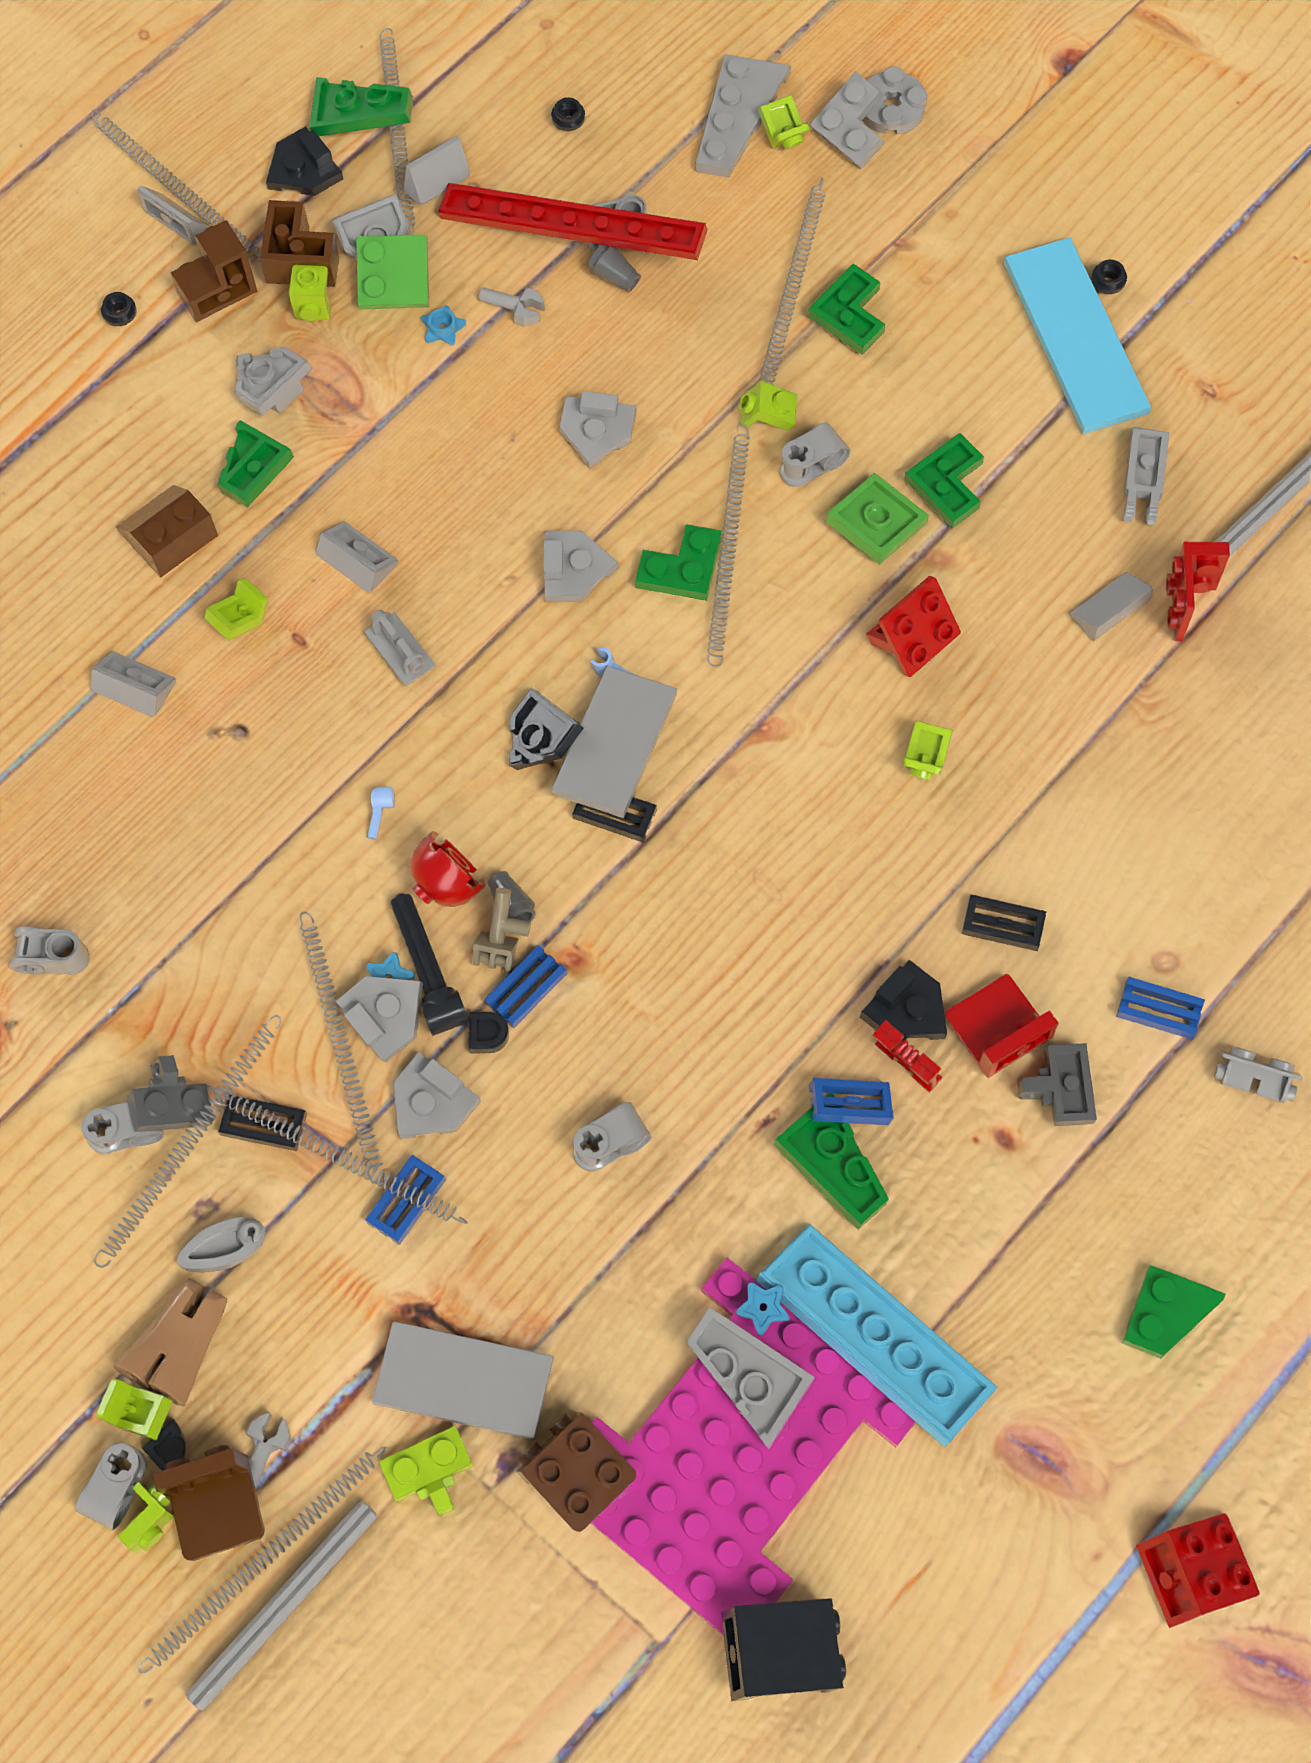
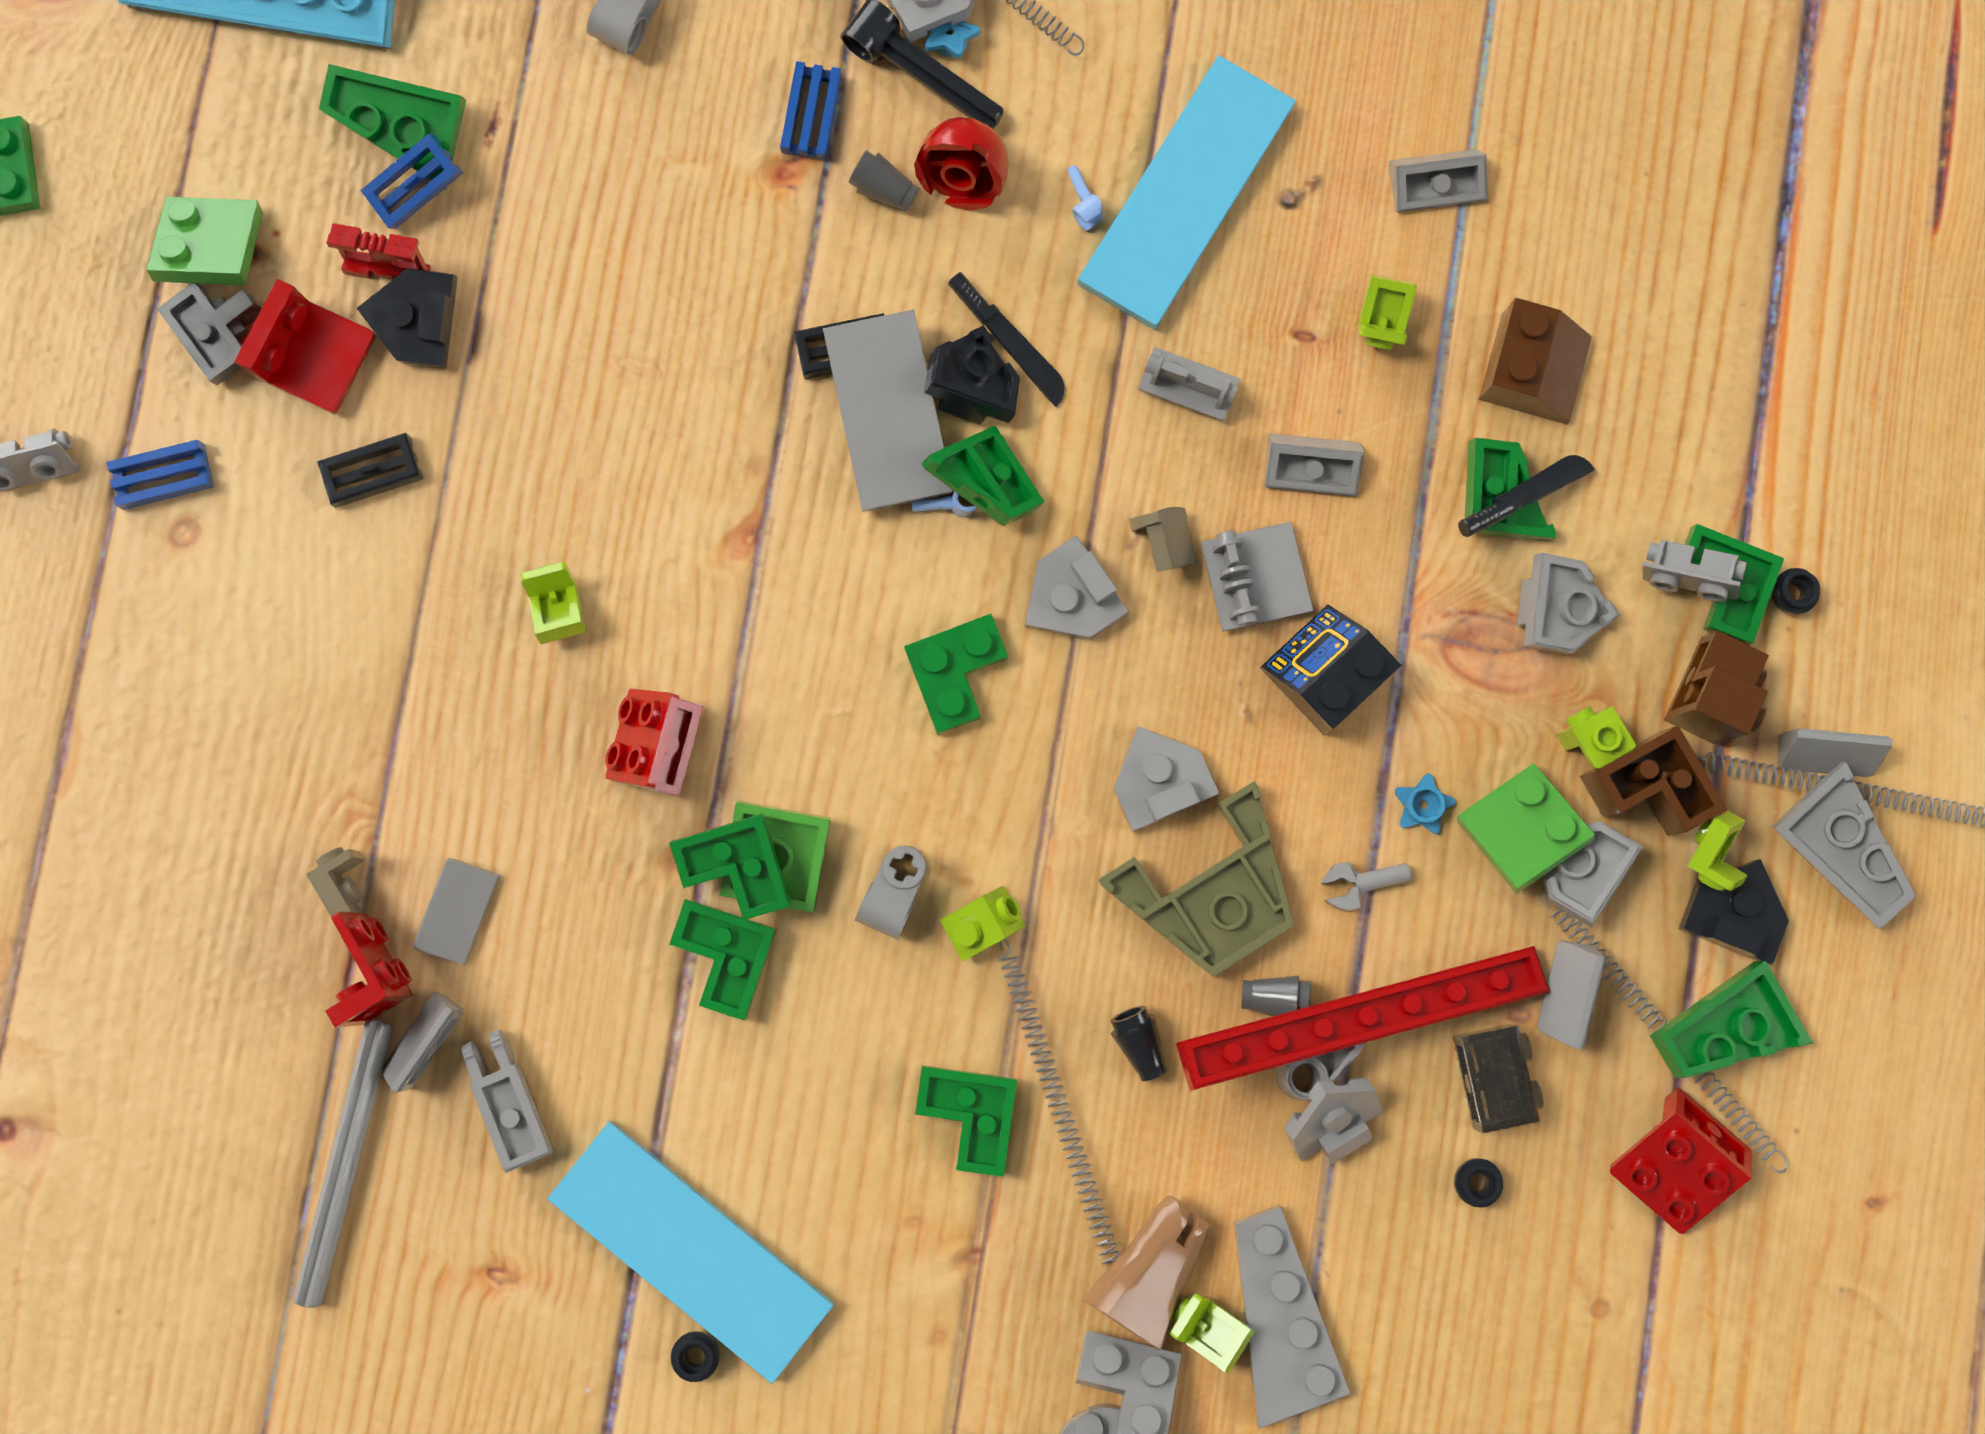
camera: 140 degrees right, 15 degrees up
(146, 331) = (1742, 616): none -> green plate
(183, 356) = (1710, 579): none -> light grey hinge
(210, 159) = (1844, 844): none -> light grey wing
(226, 451) = (1535, 488): none -> black piece
(297, 186) = (1714, 842): none -> lime bracket
(305, 773) = (1186, 192): none -> medium azure tile
(438, 53) = (1684, 1164): none -> red bracket
(441, 423) = (1330, 668): none -> slope
(446, 507) = (1256, 576): none -> light grey hinge
(483, 561) = (1168, 537): none -> dark tan tile
(487, 1032) = (819, 43): black tile -> none
(495, 738) = (1017, 346): none -> black piece
(495, 947) = (865, 129): dark tan arm -> none
(515, 156) = (1498, 1078): none -> clear smoke brick
(577, 661) = (986, 475): none -> green wing
(609, 333) = (1226, 907): none -> olive wing
(629, 182) = (1334, 1119): none -> light grey plate
(716, 292) = (1140, 1041): none -> black cone
(729, 546) = (923, 730): light grey piece -> none
(809, 161) = (1149, 1276): none -> medium nougat piece
(900, 522) = (743, 853): none -> green plate
(1032, 1150) = (205, 241): none -> plate
(1167, 540) = (421, 1042): none -> light grey slope
(1184, 659) = (333, 889): none -> dark tan bracket

